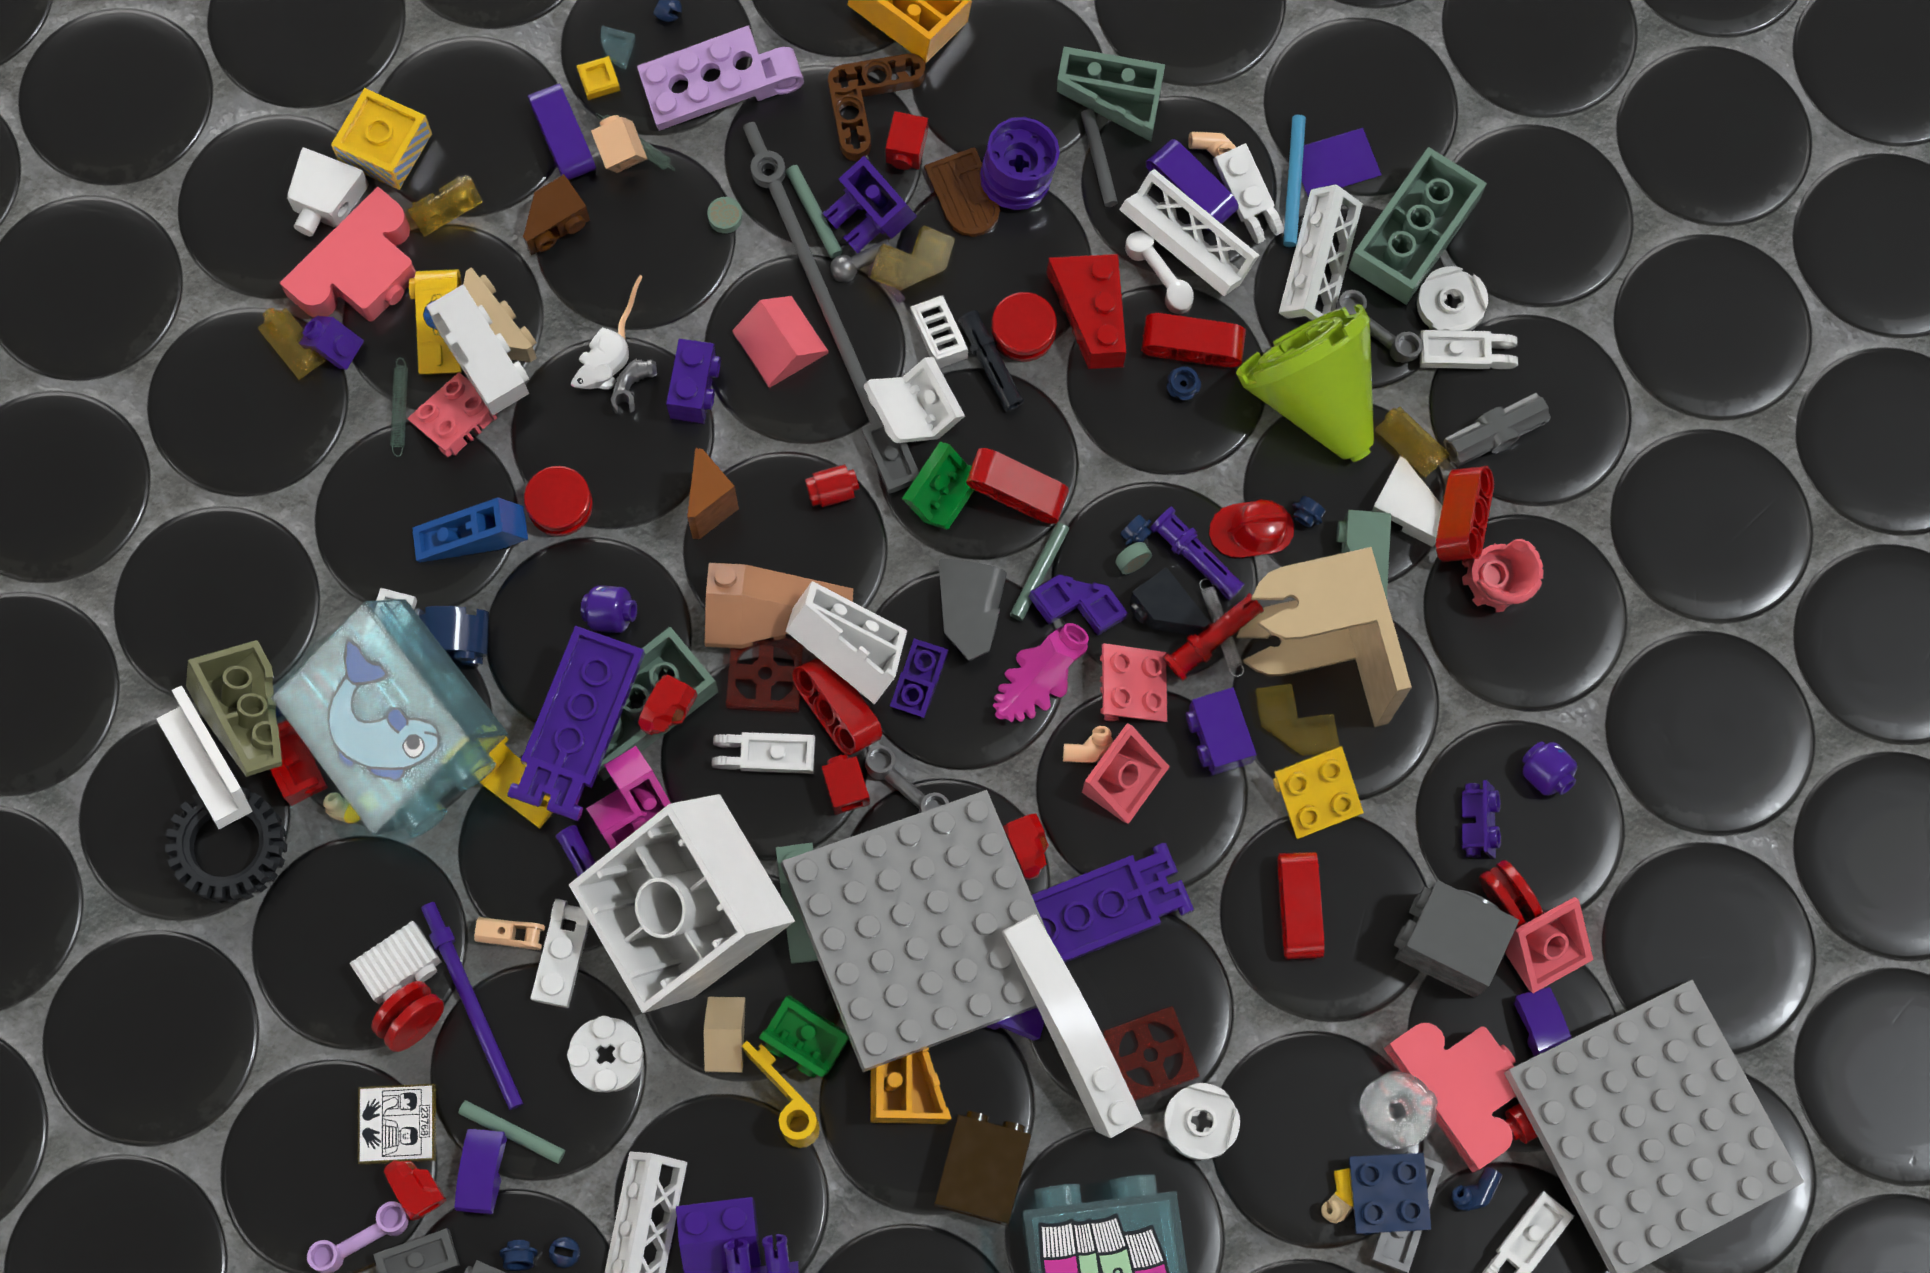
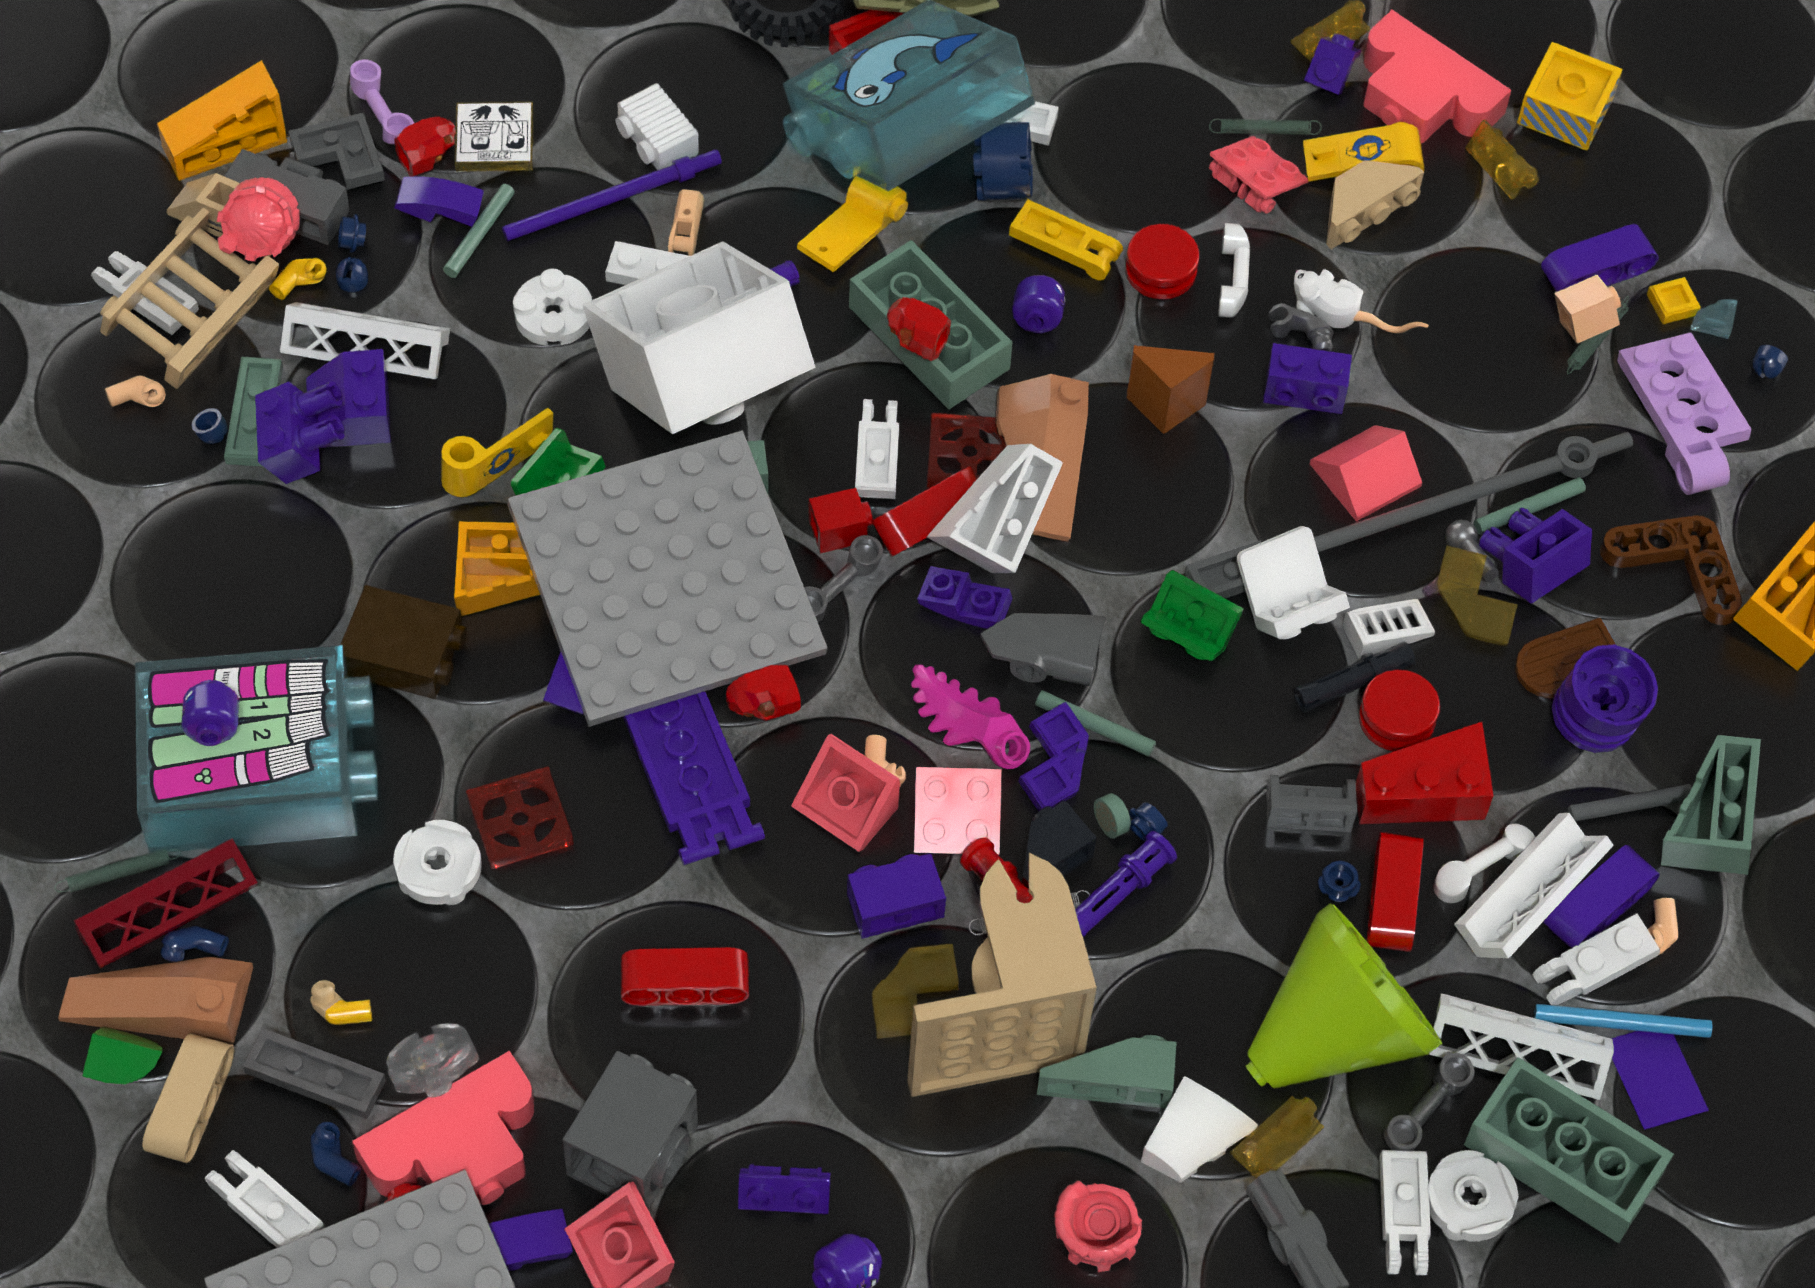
camera: 90 degrees right, 15 degrees down
(323, 190) = (1506, 50): white torso -> none
(407, 1016) = (599, 131): red head -> none
(471, 531) = (1124, 186): blue slope -> none
(478, 349) = (1322, 165): white wedge -> none
(530, 586) = (1066, 239): none -> yellow plate
(535, 439) = (1235, 243): none -> white bar
(553, 214) = (1498, 253): reddish brown slope -> none
(577, 721) = (902, 252): dark purple hinge -> none
(634, 801) = (830, 314): dark pink brick -> none
(724, 1034) = (574, 406): tan slope -> none
(725, 215) = (1516, 418): sand green tile -> none
(832, 486) = (1189, 512): red brick -> none
(906, 140) = (1625, 593): red brick -> none
(1017, 485) = (1194, 690): beam -> none
(1073, 1029) = (542, 711): white slope -> none
(1112, 400) = (1311, 806): none -> dark grey hinge
(1251, 529) = (1156, 955): red piece -> none
(1308, 511) = (1178, 1011): dark blue plate -> none
(1318, 792) = (823, 1003): yellow hinge -> none
(1389, 1193) = (336, 1048): dark blue hinge -> none
(1464, 514) = (1191, 1198): red beam -> none
(1510, 892) = (685, 1200): red head -> none

